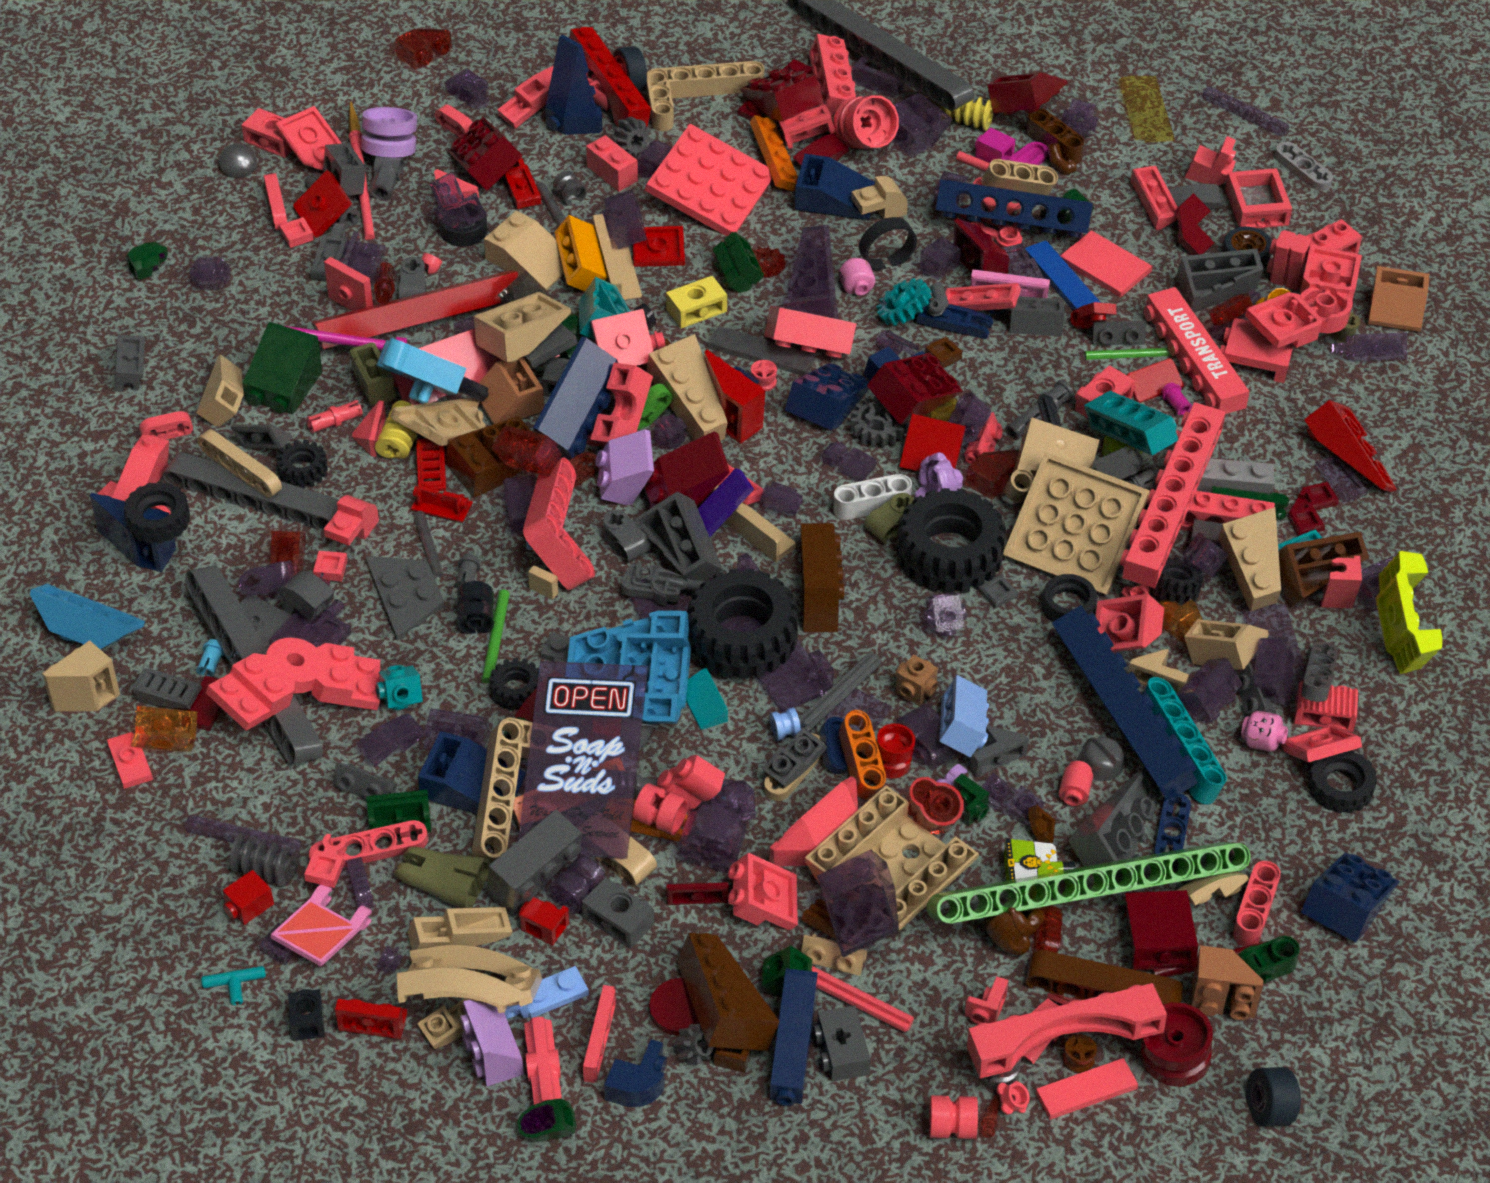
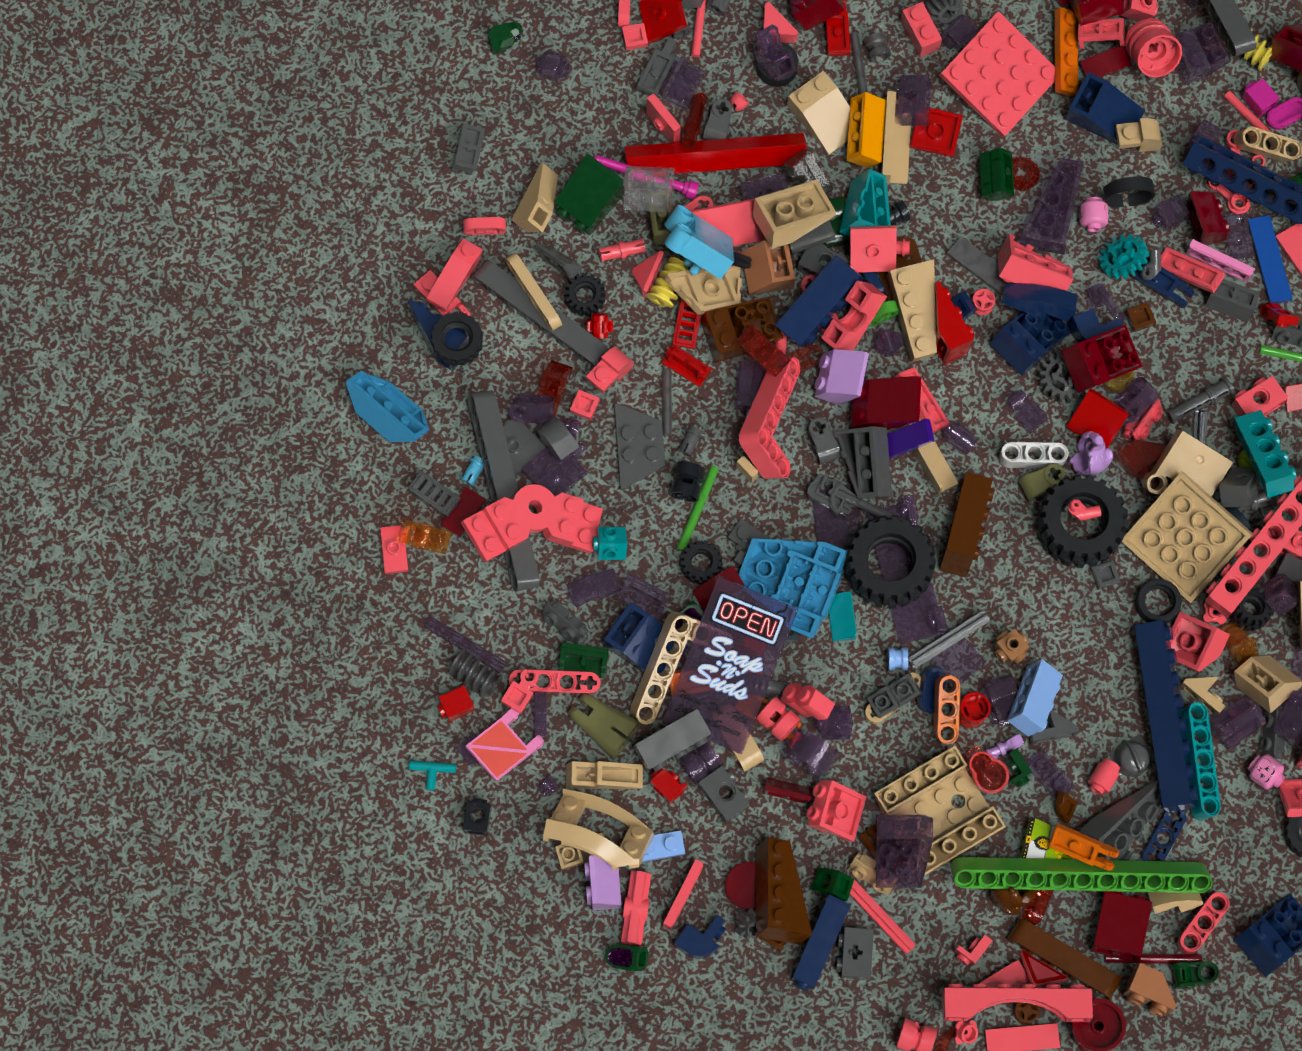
camera: 15 degrees right, 25 degrees up
(82, 680) = (371, 473): tan slope -> none
(328, 484) = (599, 325): none -> red gear
(349, 341) = (648, 188): none -> clear brick
(370, 1018) = (522, 832): red bracket -> none
(696, 301) = (941, 215): light yellow brick -> none
(815, 825) = (896, 762): coral wedge -> none
(827, 352) = (1040, 300): none -> dark blue slope
(935, 614) = (1054, 590): clear purple brick -> none
(948, 520) = (1082, 512): none -> coral arm
(1077, 846) = (1082, 847): none -> orange hinge

